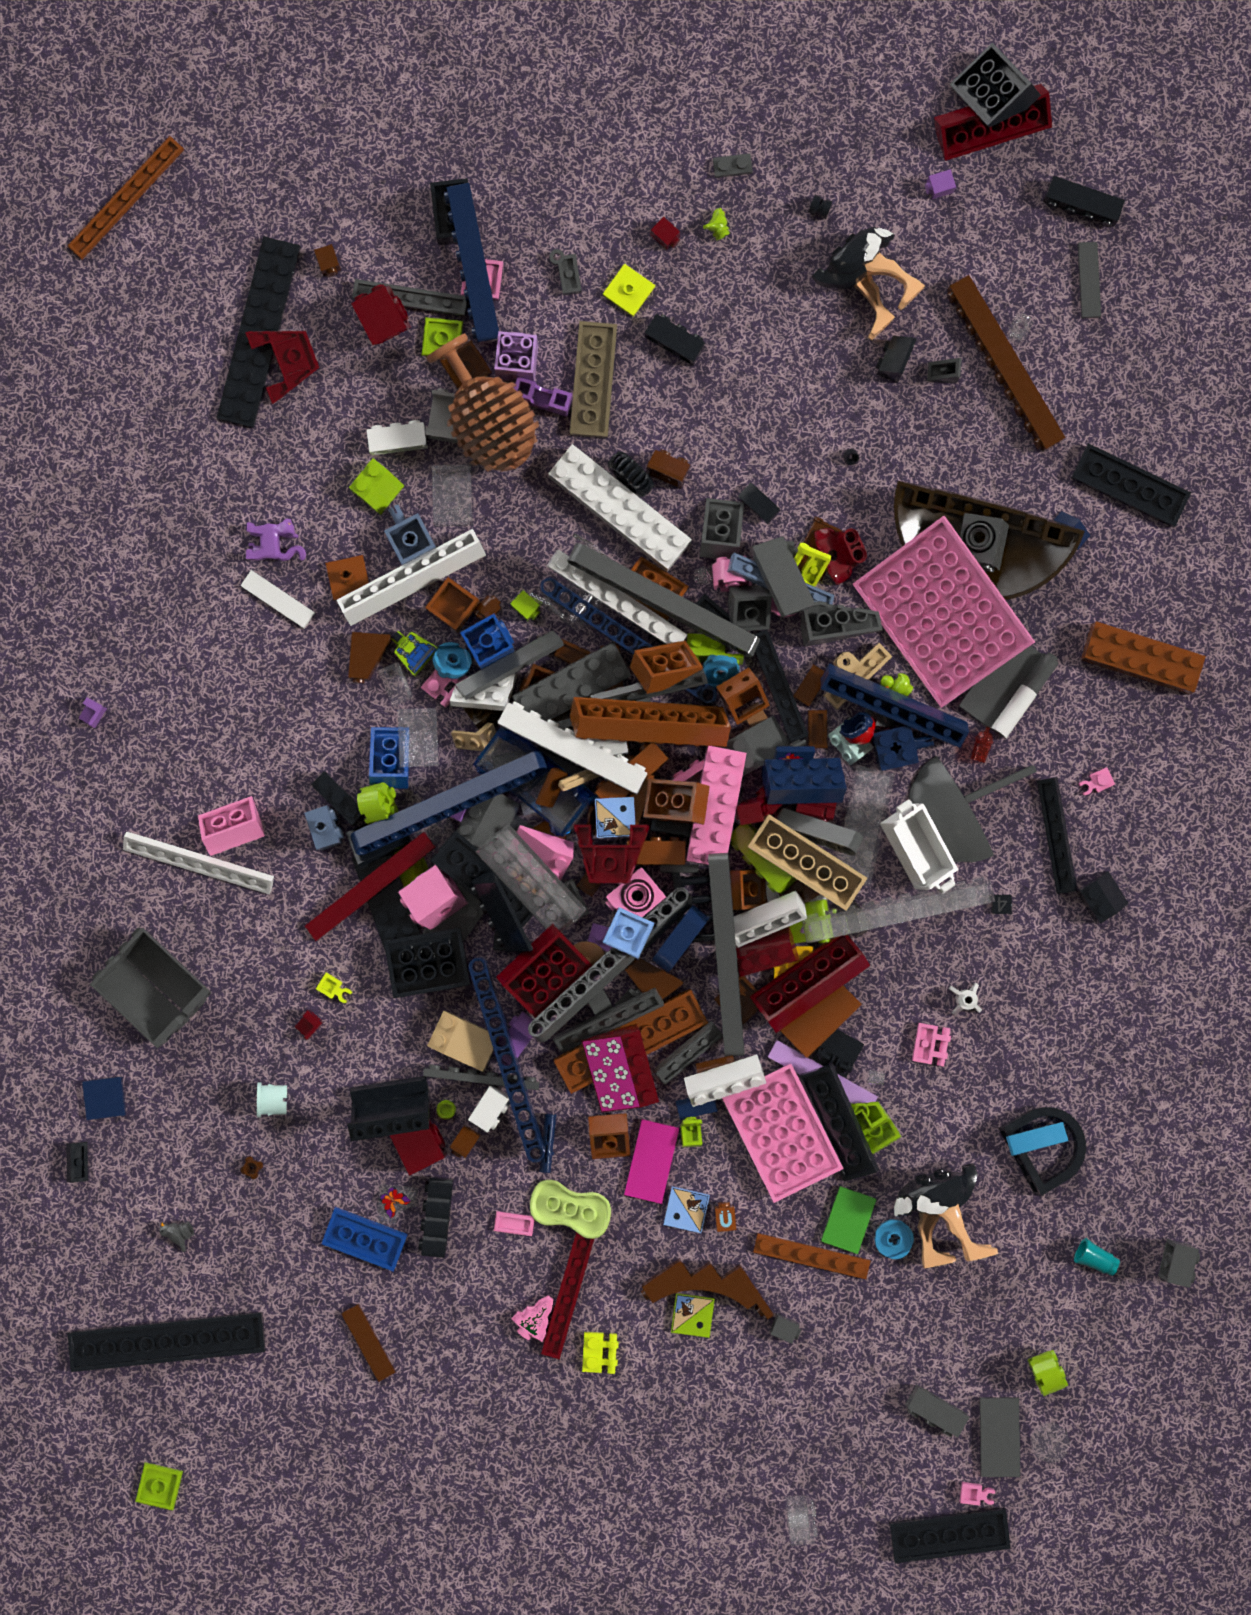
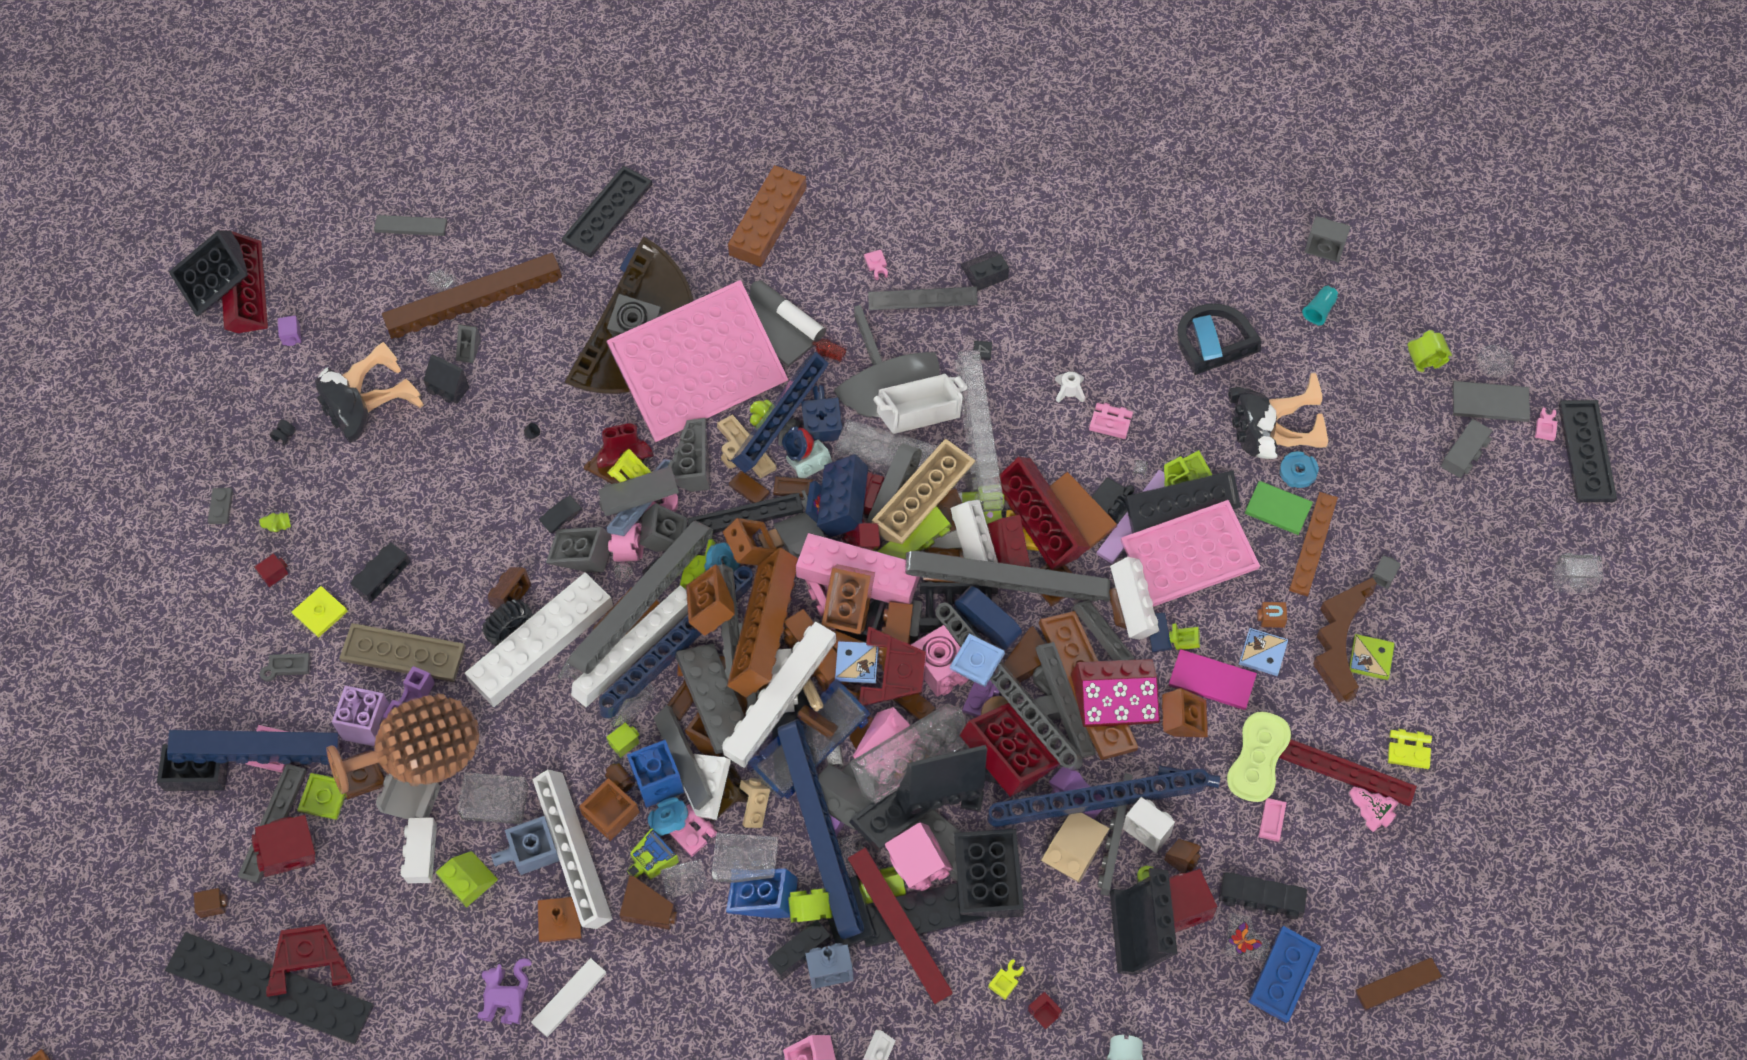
camera: 75 degrees left, 25 degrees down
(1083, 201) = (337, 220): black brick -> none

